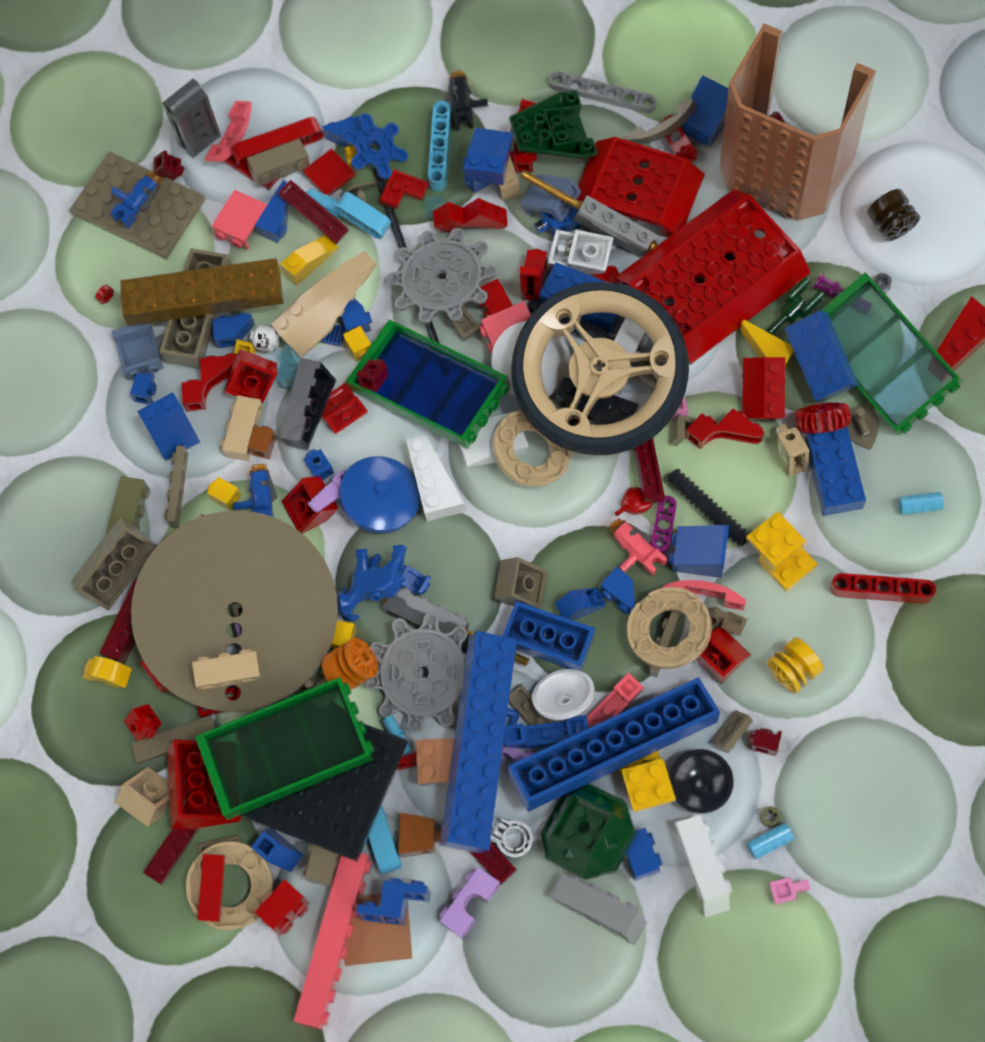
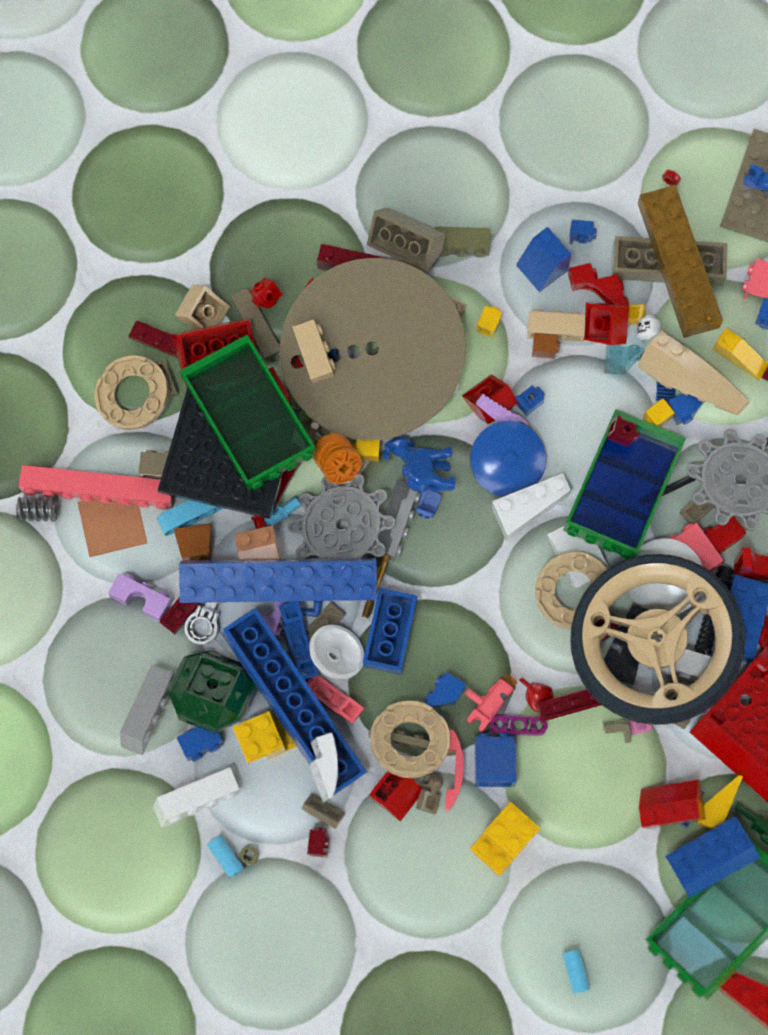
camera: 75 degrees right, 5 degrees up
(107, 671) = (306, 254): yellow brick -> none
(137, 350) = (618, 219): sand blue panel -> none
(177, 478) = (494, 279): dark tan plate -> none
(211, 887) = (126, 377): red tile -> none
(231, 328) = (653, 296): blue slope -> none
(261, 491) = (491, 356): blue piece -> none
(277, 850) = (164, 426): blue slope -> none
(282, 908) = (116, 439): red brick -> none
(306, 403) = (586, 377): black wedge -> none
(342, 409) = (590, 410): red slope -> none
(347, 1012) = (37, 510): none -> dark grey piece
(394, 902) = (131, 531): blue bracket -> none
(520, 582) = (439, 600): dark tan slope -> none
(580, 603) = (427, 657): blue slope -> none
(693, 711) = (325, 765): none -> white slope
(705, 767) = (269, 772): black dish -> none
(707, 506) = (542, 763): black piece -> none
(733, 427) = (628, 778): red arch -> none
(785, 890) = (182, 875): bright pink plate -> none
(792, 450) = (612, 838): tan torso -> none
(795, 665) = (391, 861): yellow wheel -> none
(823, 417) = (647, 864): red gear -> none
(835, 472) = (597, 883): blue brick -> none
(863, 426) = (651, 905): dark tan shield -> none
(892, 584) = (480, 950): red beam -> none

